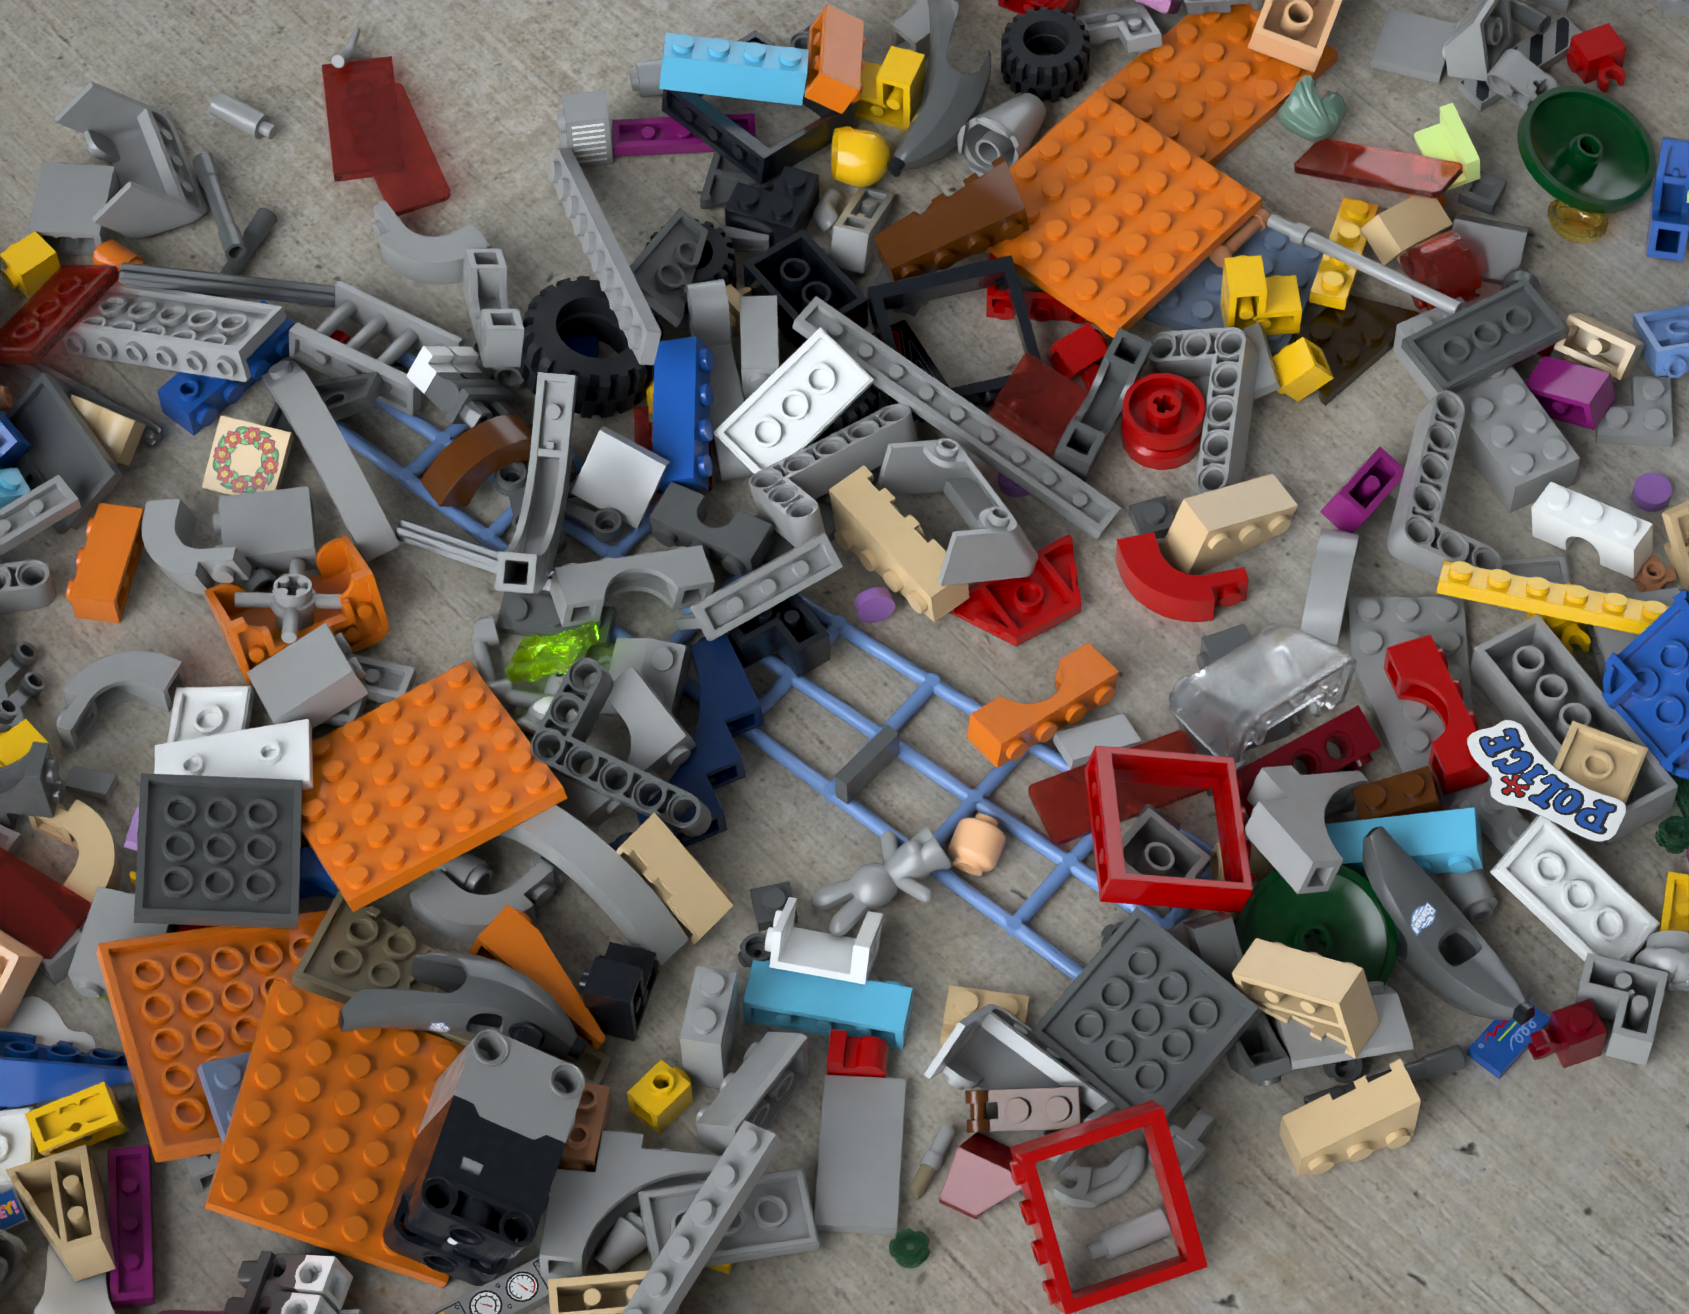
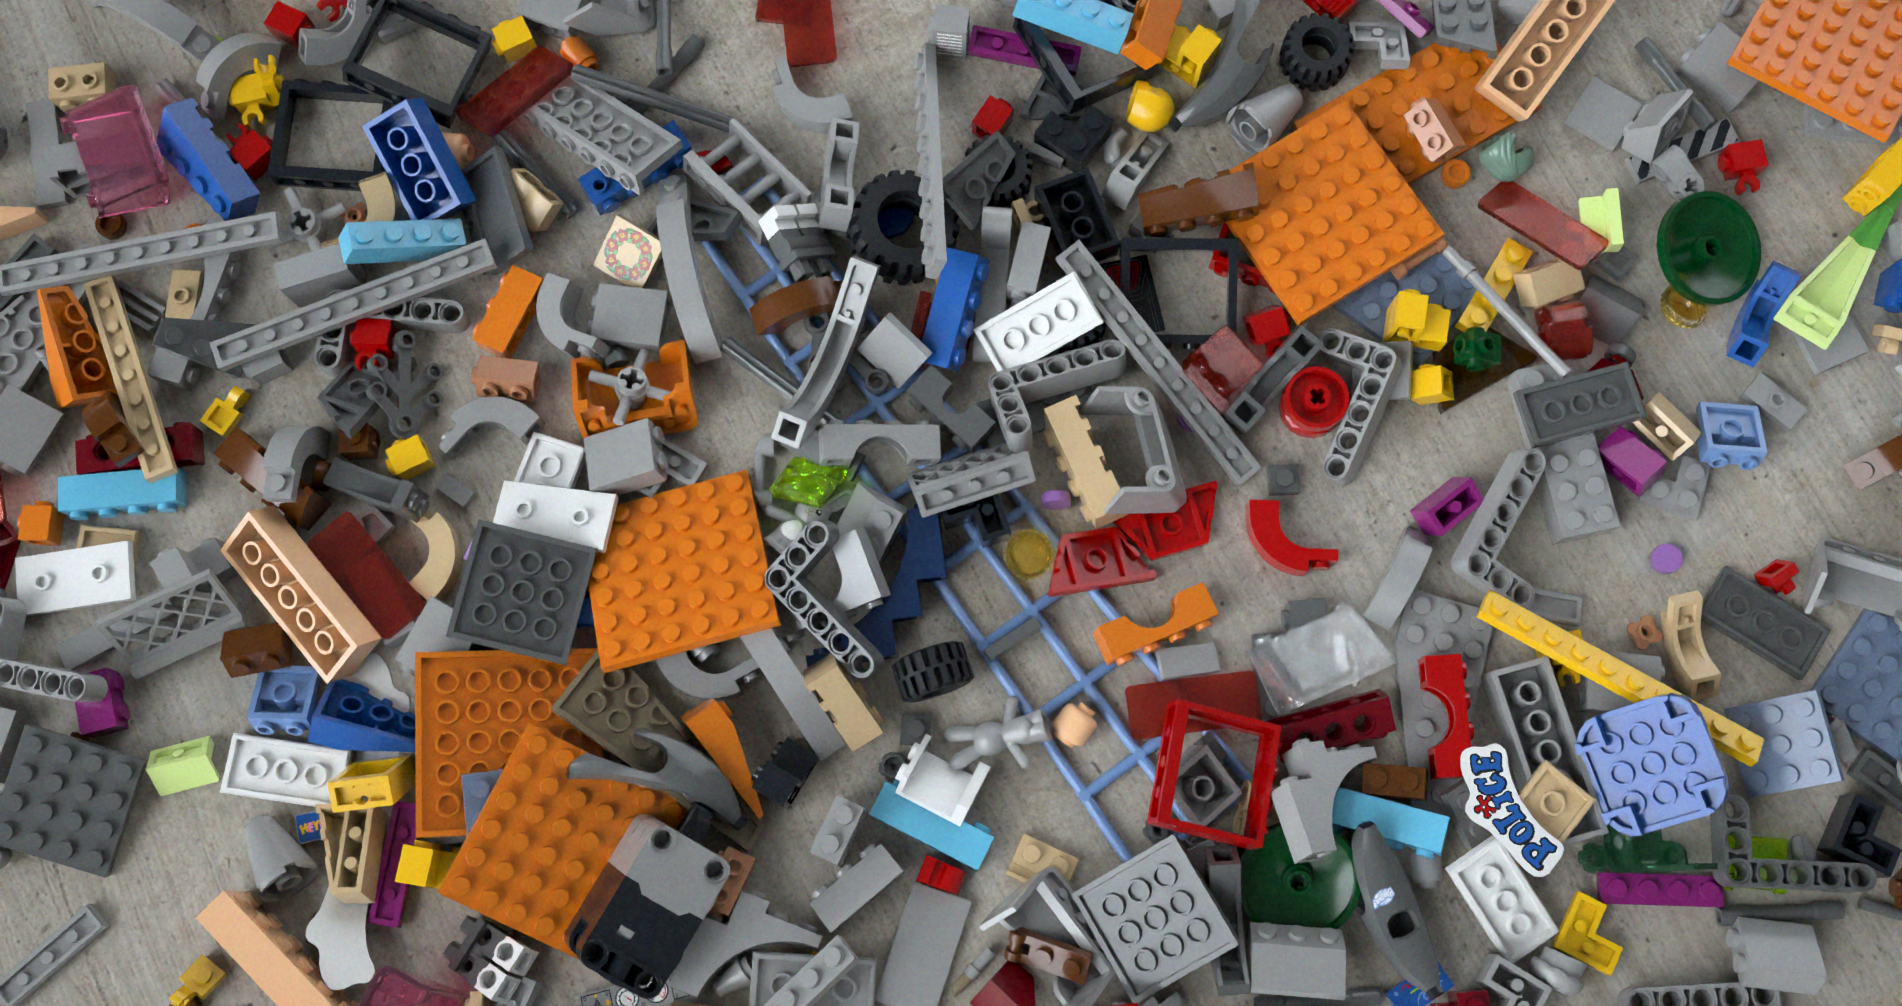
camera: 15 degrees right, 20 degrees up
(124, 630) = (506, 378): none -> nougat brick
(177, 1212) = (424, 864): none -> yellow brick
(660, 1096) = (793, 867): yellow brick -> none
(662, 207) = (992, 117): none -> red brick
(776, 819) = (932, 671): none -> black tyre
(858, 664) = (1028, 554): none -> clear yellow hat
(948, 657) = (1096, 562): none -> red wing
(1214, 97) = (1433, 130): none -> nougat brick
(1227, 523) = (1337, 504): tan wedge -> none
(1257, 147) = (1455, 173): none -> orange tile
(1310, 989) = (1278, 940): tan wedge -> none
(1343, 312) = (1477, 349): none -> dark green brick
(1619, 537) = (1626, 599): white arch -> none

